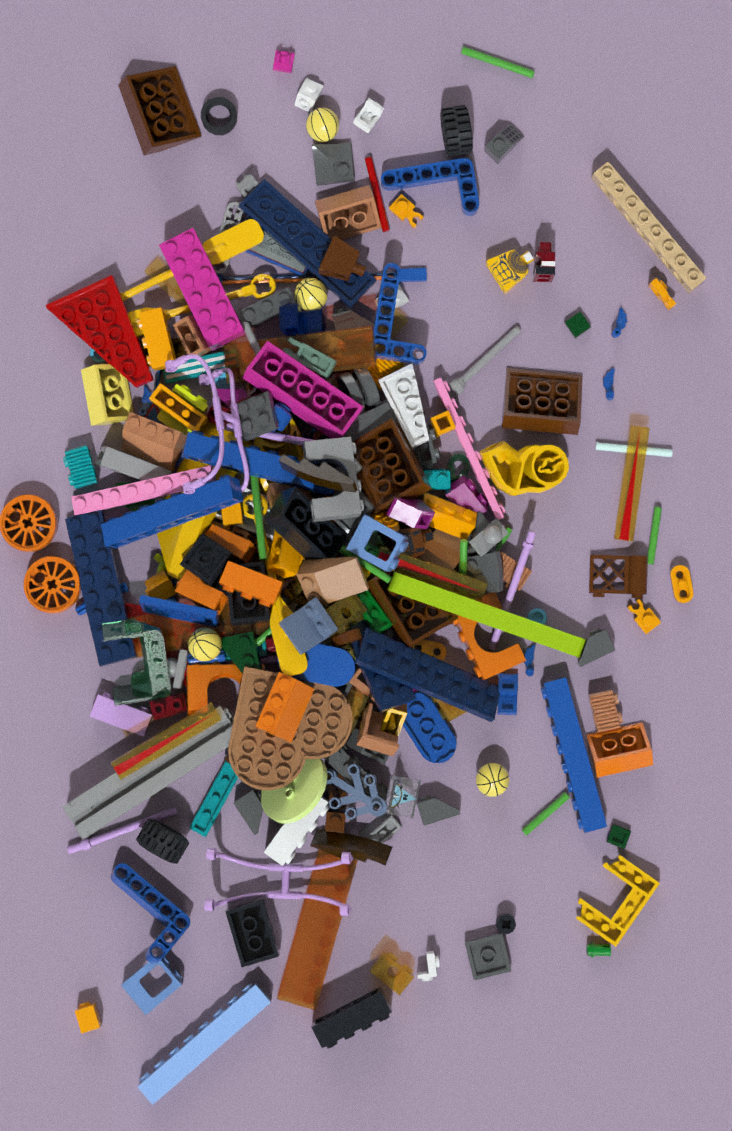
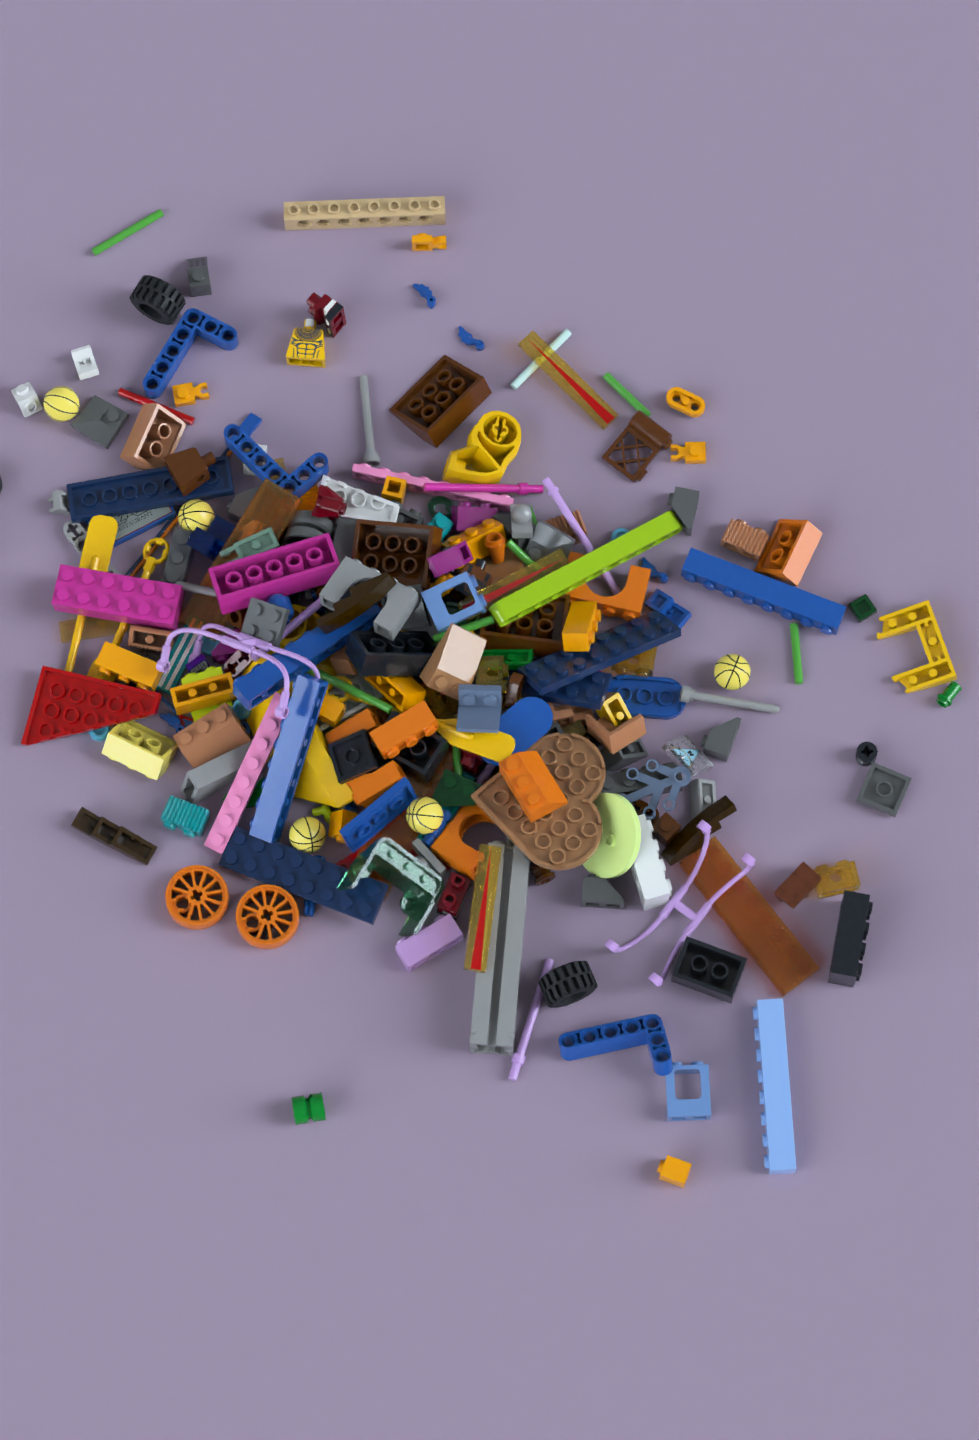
camera: 50 degrees left, 15 degrees down
(28, 427) = (114, 836): none -> dark brown slope
(132, 566) = (307, 834): none -> light yellow piece
(199, 387) = (197, 665): none -> tile
(214, 800) = (566, 919): teal tile -> none
(364, 950) = (797, 885): none -> copper panel
(388, 388) = (329, 504): none -> dark red brick
(433, 963) = (855, 841): white bracket -> none
(437, 646) = (580, 626): none -> light orange brick
(450, 760) = (688, 694): none -> light grey piece
(453, 534) = (496, 547): none -> orange cone
(518, 515) = (520, 488): none -> dark pink bar
(577, 325) = (399, 327): dark green tile -> none

